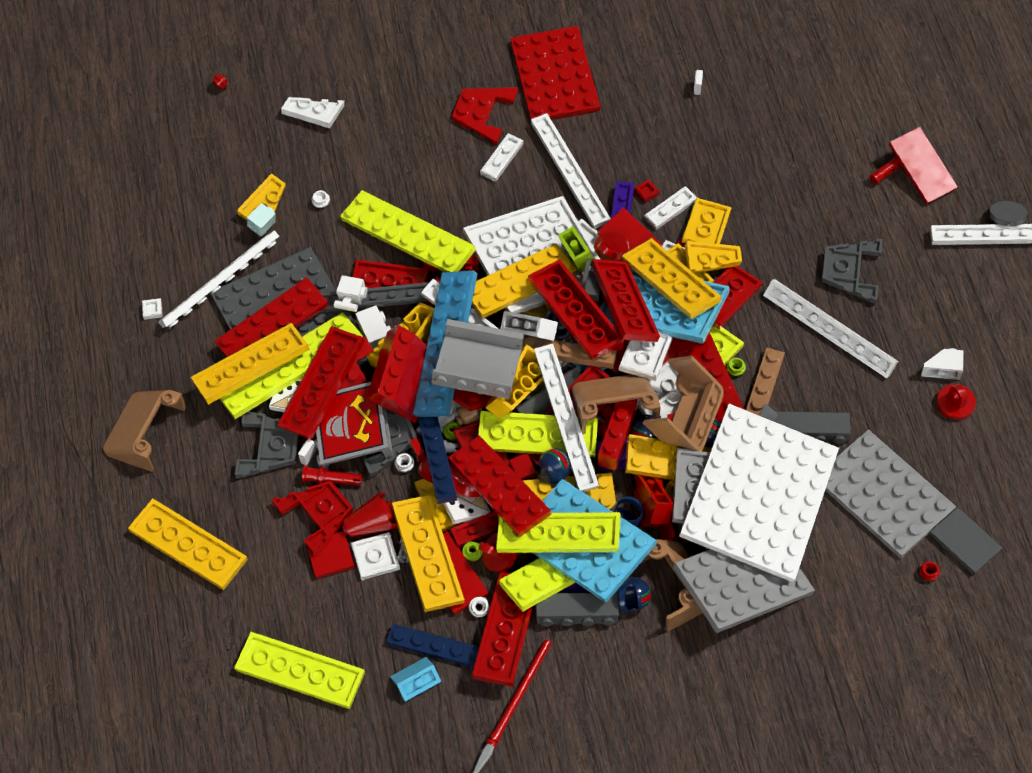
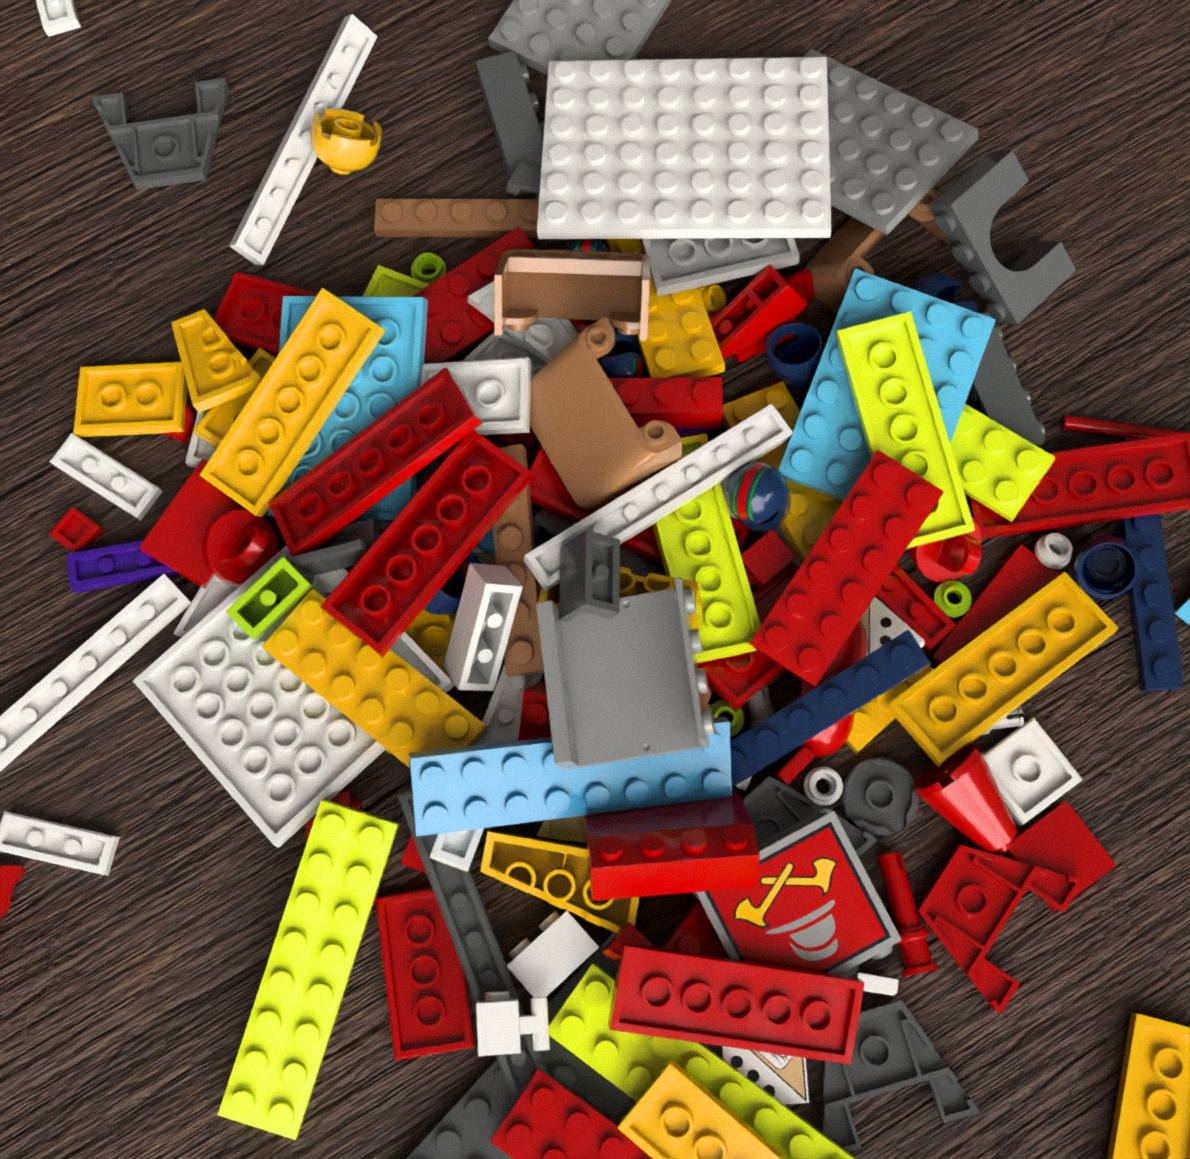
camera: 110 degrees left, 15 degrees up
(392, 482) = (879, 796): none -> dark grey tile
(460, 626) = (1107, 567): none -> dark blue helmet
(529, 362) = (589, 576): none -> dark grey panel
(629, 631) = (966, 220): none -> dark grey arch
(820, 342) = (345, 140): none -> yellow cylinder

